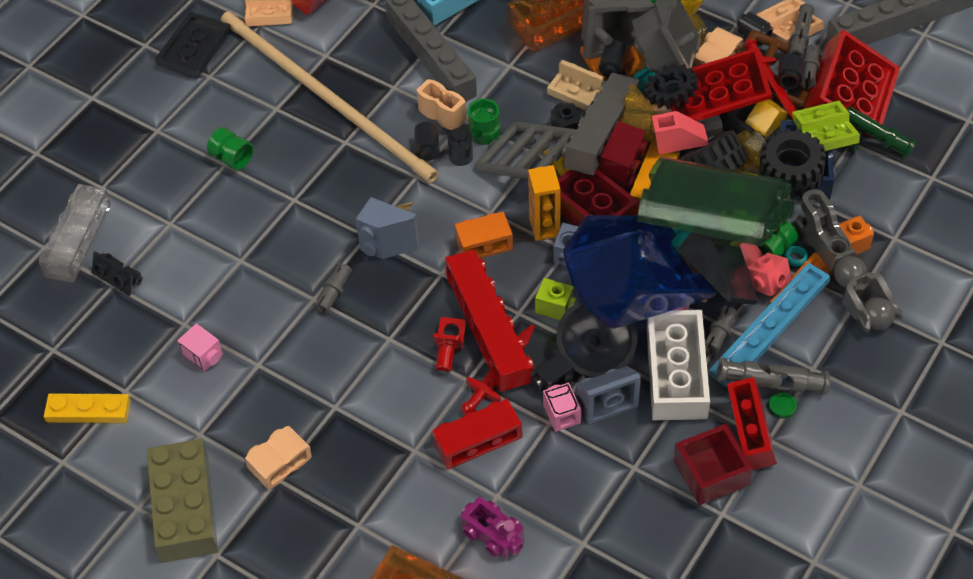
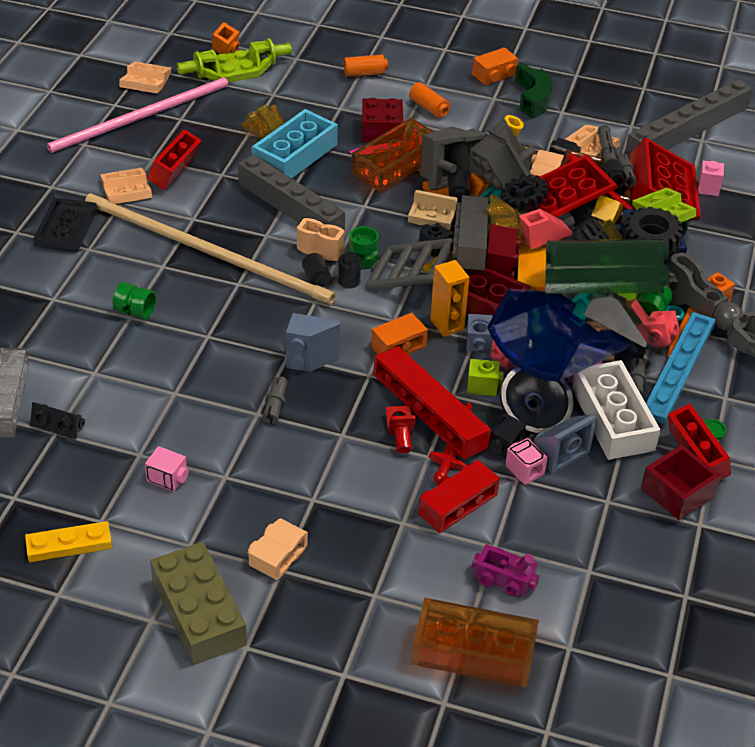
camera: 20 degrees left, 10 degrees down
(770, 376) = (719, 404): dark grey piece -> none
(888, 137) = (712, 213): dark green pin -> none
(907, 89) = (710, 178): none -> bright pink brick

